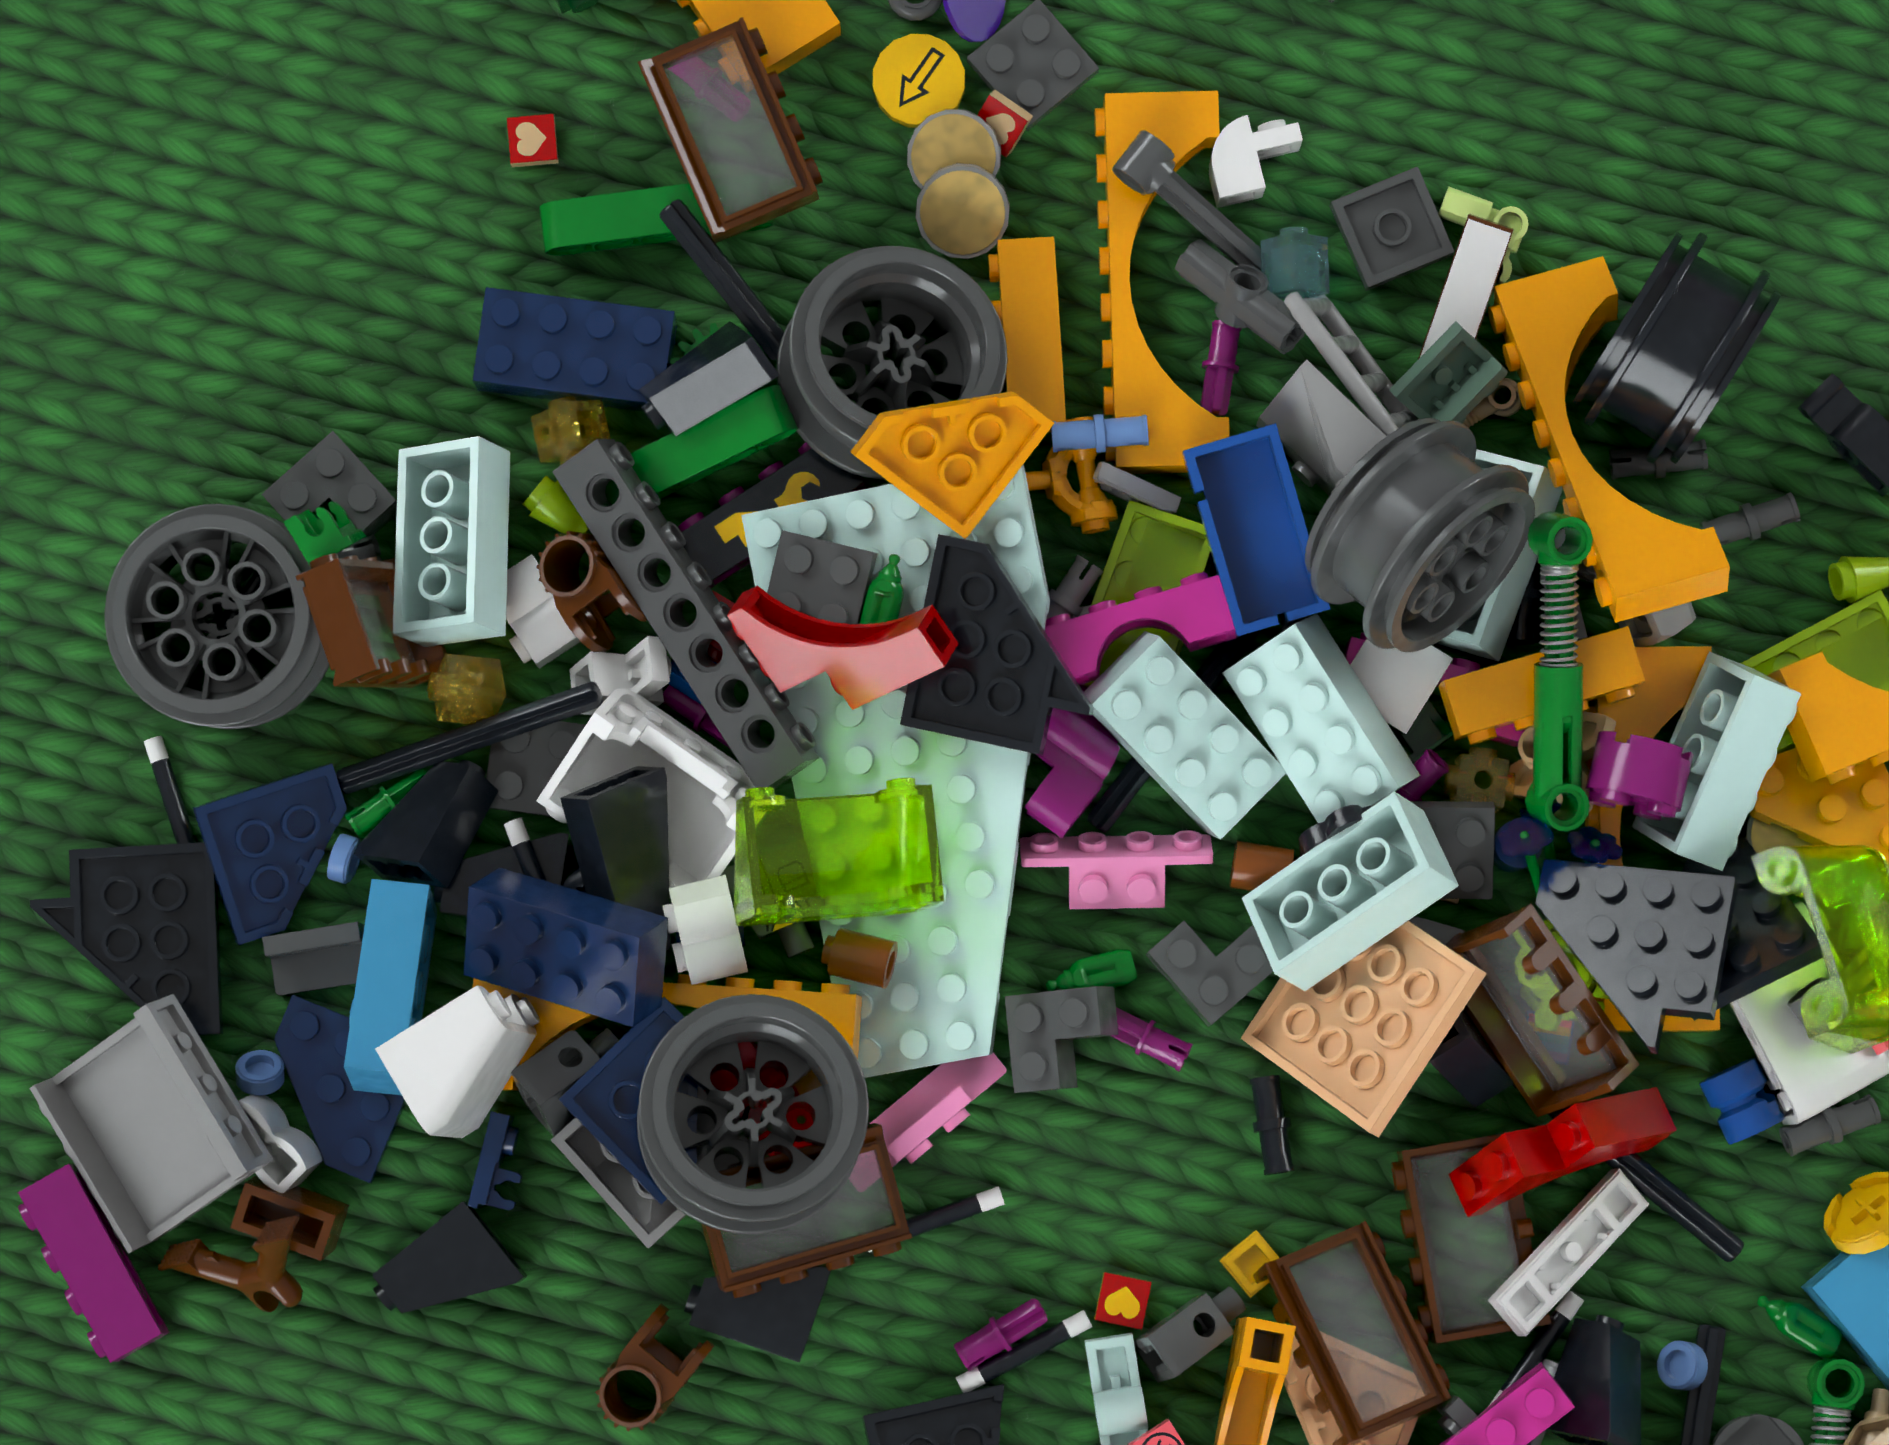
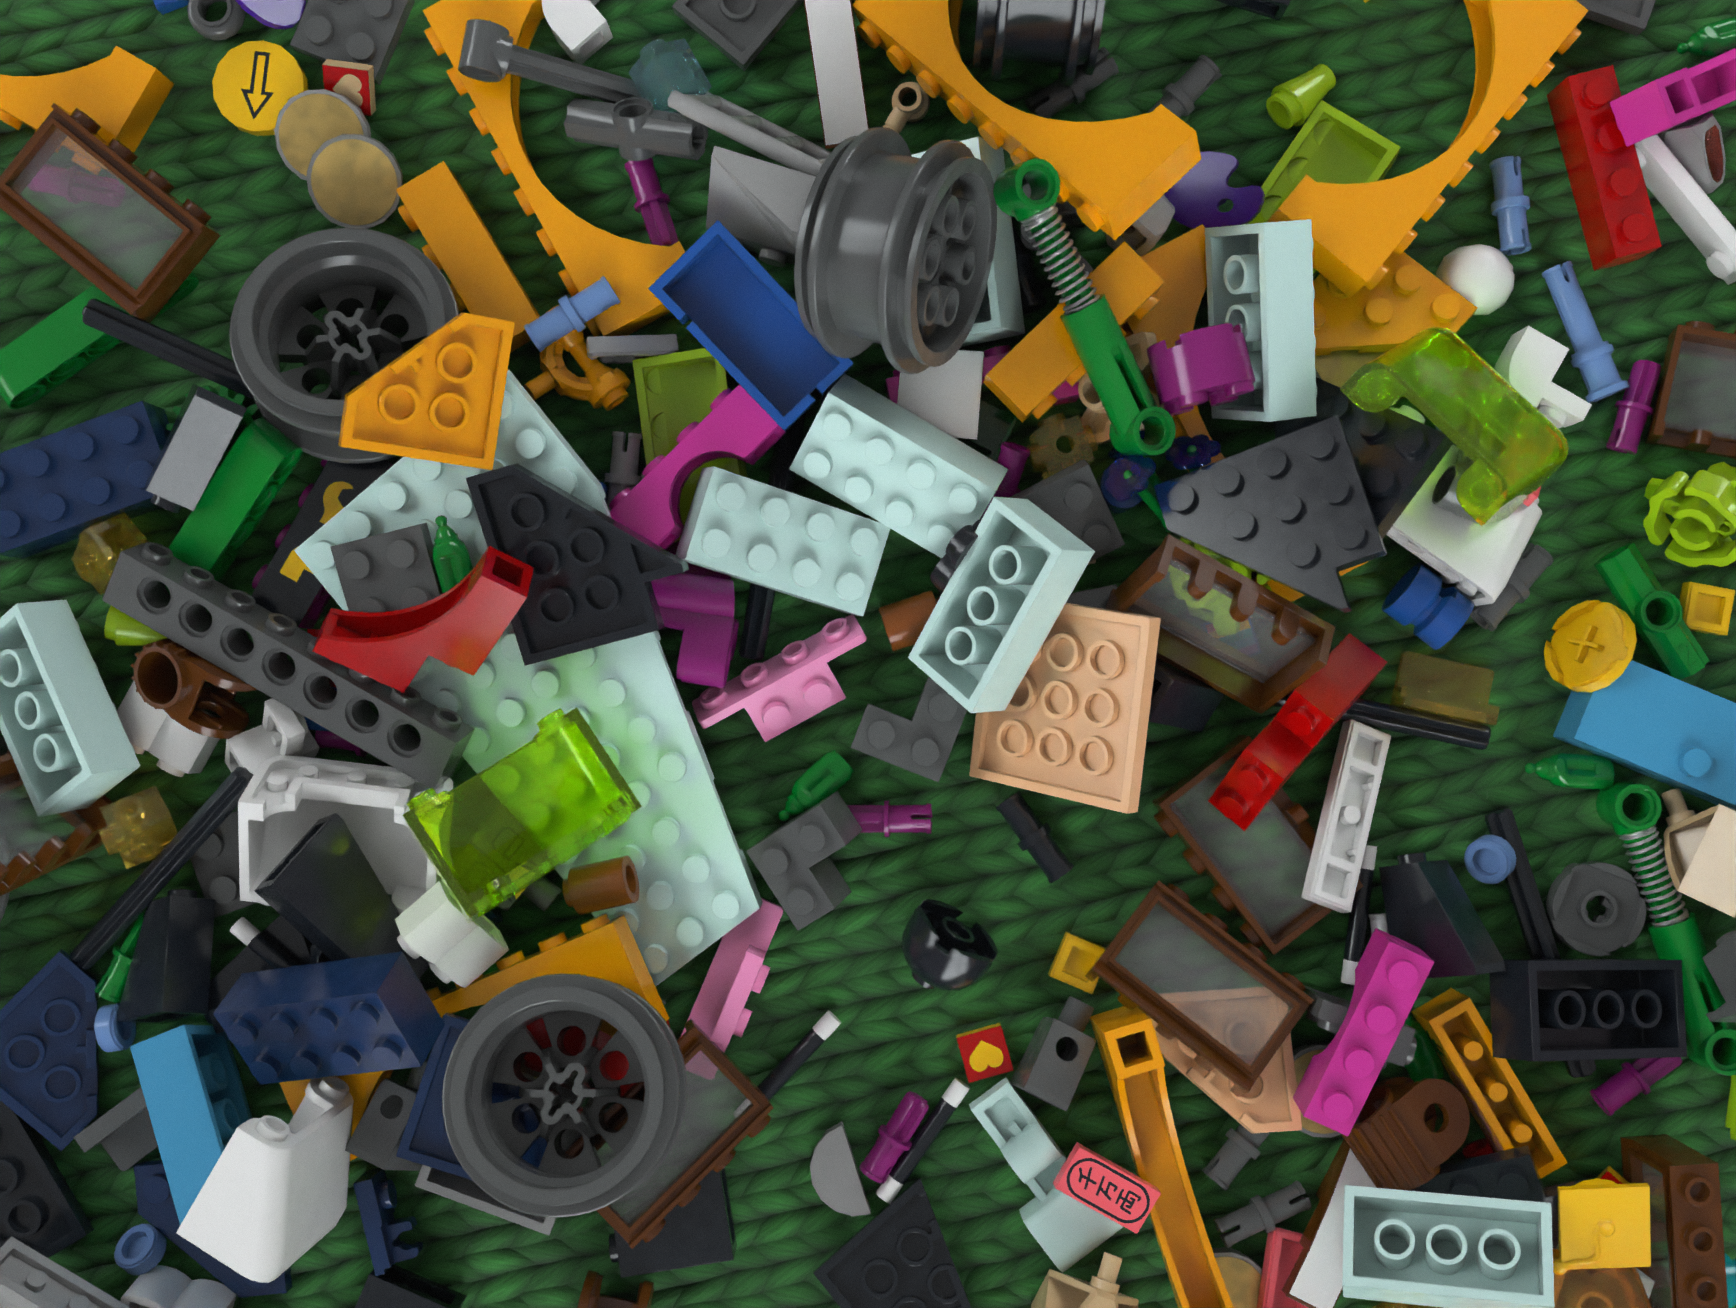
camera: 25 degrees left, 5 degrees up
(928, 1341) = (837, 1175): none -> light grey tile
(1136, 1182) = (943, 949): none -> black cylinder
(1449, 377) = (853, 99): sand green bracket -> none
(1721, 1187) = (1444, 688): none -> clear yellow panel
(1732, 615) = (1207, 188): none -> dark purple piece

